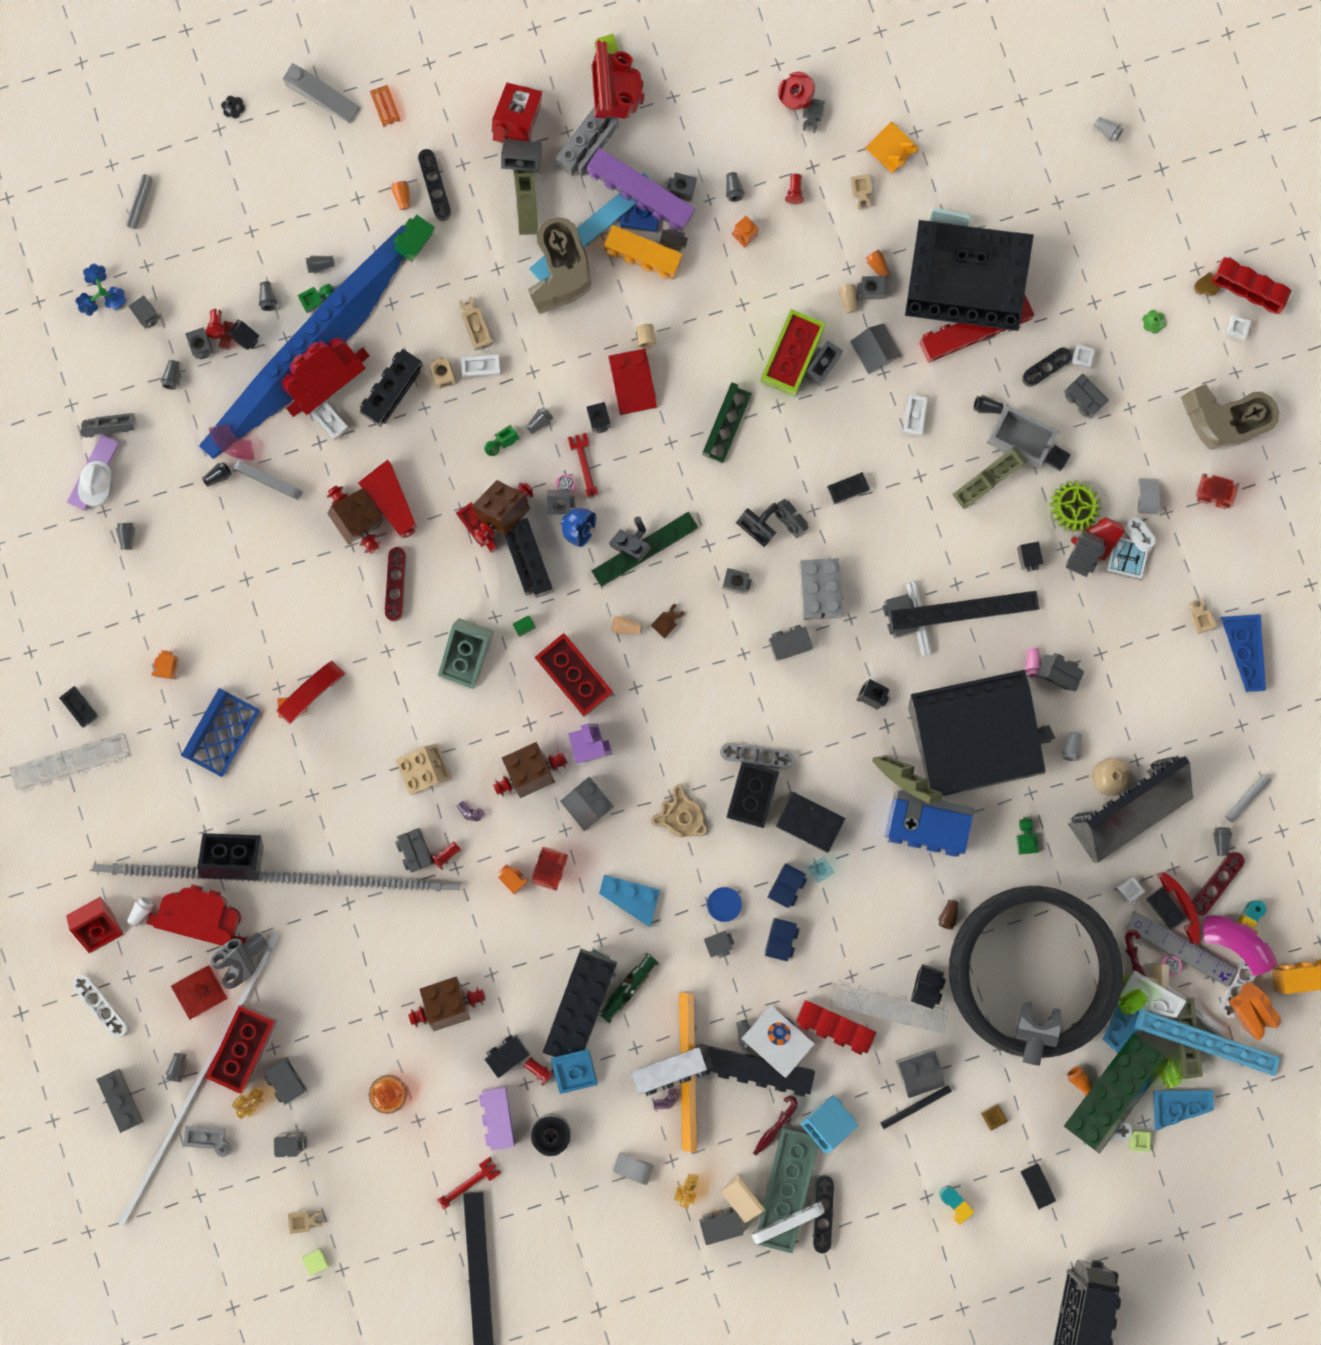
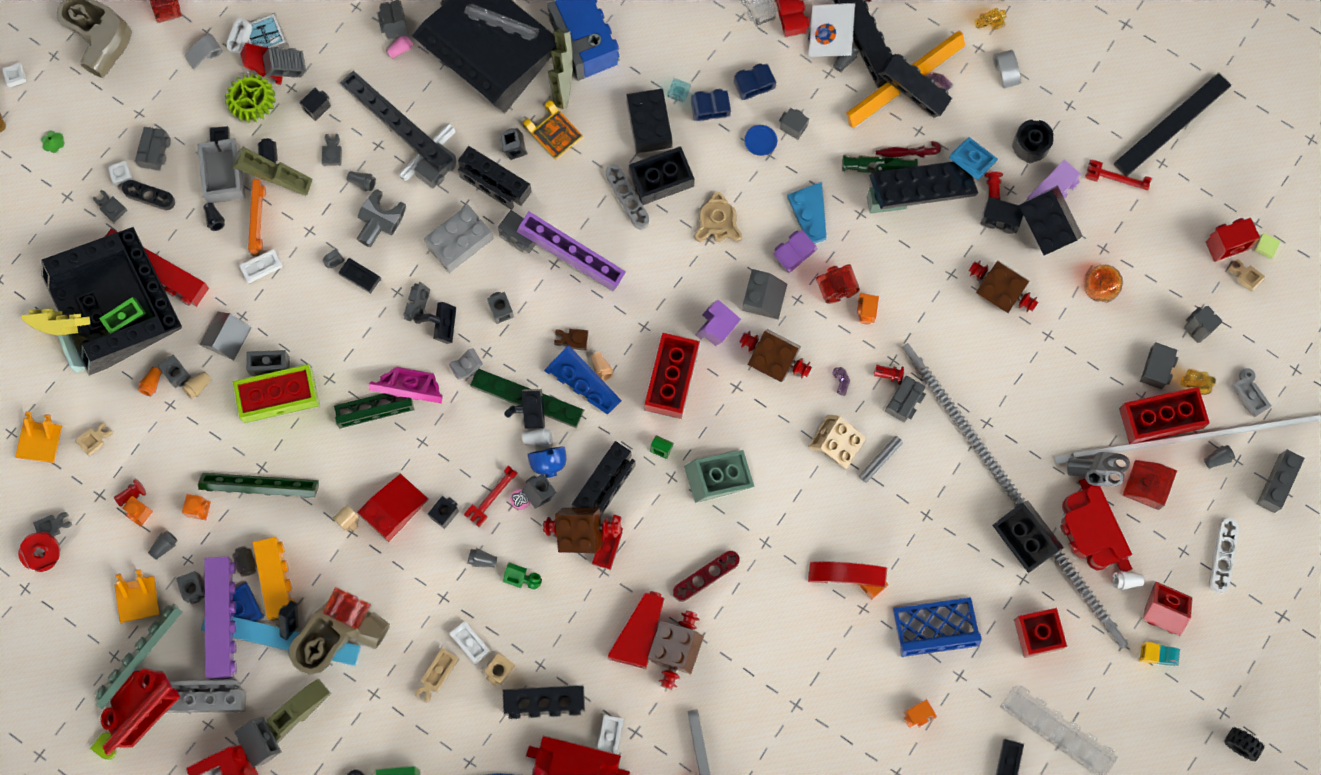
camera: 125 degrees left, 10 degrees down
(66, 888) = (1159, 654): none -> leg
(152, 807) = (1040, 632): none -> red brick
(339, 1231) = (1232, 239): none -> red brick
(382, 791) = (880, 459): none -> light grey axle
(468, 1087) = (1050, 220): none -> black brick
(567, 281) = (346, 608): none -> clear red brick
(598, 238) = (288, 619): none -> black plate
(603, 535) = (538, 437): none -> white cone
(605, 857) = (795, 250): none -> medium lavender brick
(626, 1016) = (900, 152): none -> dark red piece
(637, 600) = (573, 371): none -> blue wing
(655, 109) = (131, 661): none -> sand green plate
(705, 141) = (136, 598): none -> light orange plate
(707, 518) = (466, 365): none -> light grey bracket
(722, 461) = (408, 384): none -> dark pink wing
(728, 290) = (258, 485): none -> dark green plate
(737, 668) = (571, 251): none -> medium lavender brick
(775, 185) = (137, 511): none -> orange brick
(856, 658) = (500, 179): none -> black brick
(858, 737) = (555, 133): none -> flag
(878, 476) = (333, 259): none -> dark grey tile
(886, 536) = (378, 219): none -> dark grey connector
(931, 547) = (362, 180): none -> dark grey cone
(945, 273) = (123, 315): none -> bright green brick
(976, 540) = (332, 153): none -> dark grey plate
(981, 216) = (54, 322): none -> light yellow slope
(981, 454) = (255, 242): none -> orange plate
(982, 754) = (494, 19): none -> clear plate
(1014, 487) = (268, 149): none -> black brick
(1057, 330) = (110, 207): none -> dark grey plate

